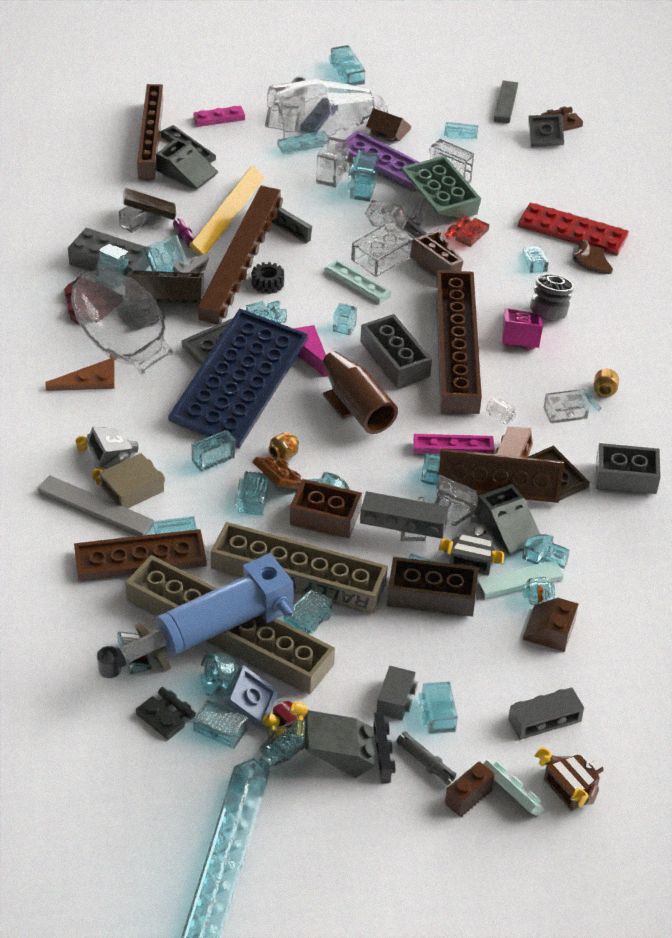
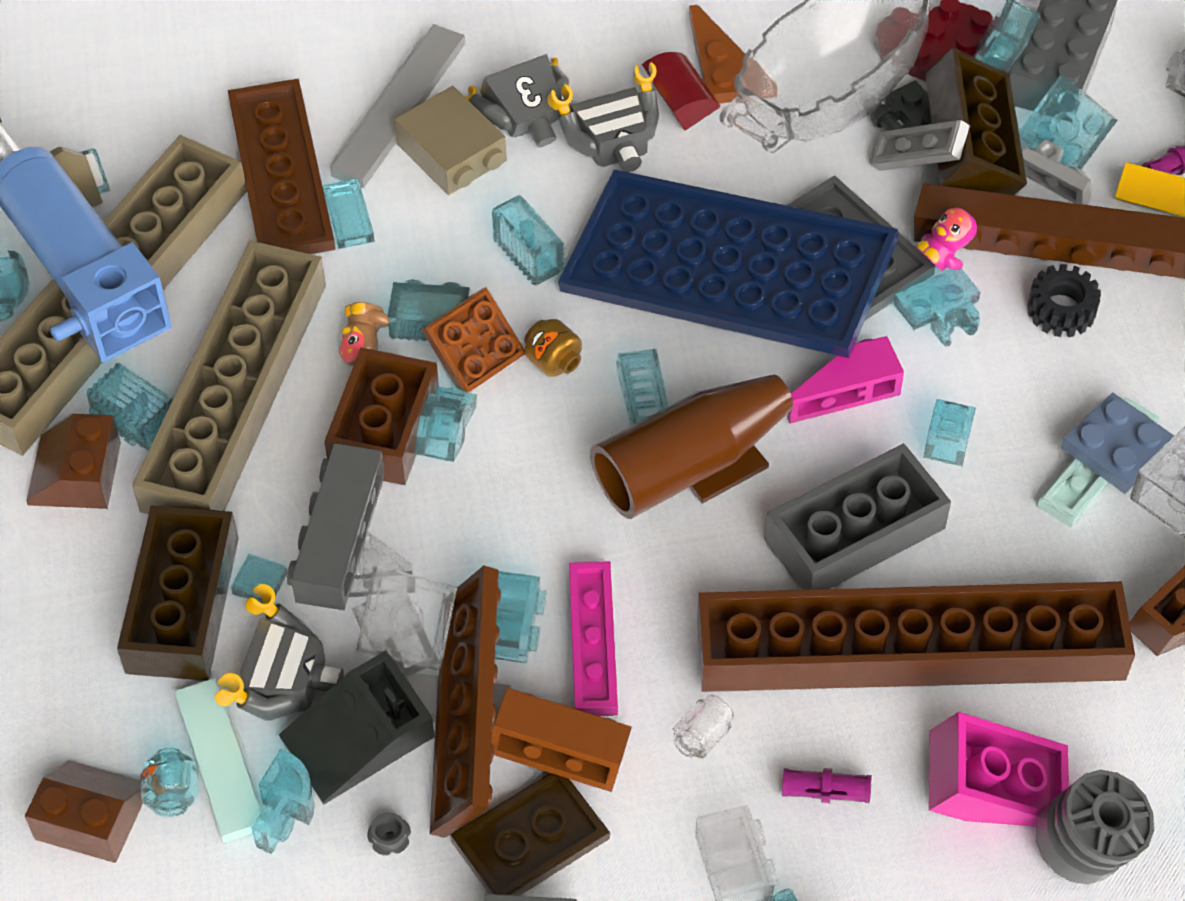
camera: 90 degrees right, 10 degrees up
(111, 391) = (682, 88): none -> dark red brick
(132, 415) = (613, 125): none -> dark grey torso
(178, 300) = (920, 145): none -> light grey tile
(236, 299) = (948, 235): none -> animal
(270, 519) = (361, 330): none -> animal
(305, 420) = (638, 361): none -> clear light blue slope
(346, 633) = (76, 463): none -> reddish brown slope
(353, 270) = (1116, 441): none -> sand blue plate
(527, 377) = (826, 785): none -> magenta pin
(558, 517) = (386, 824): none -> dark grey plate

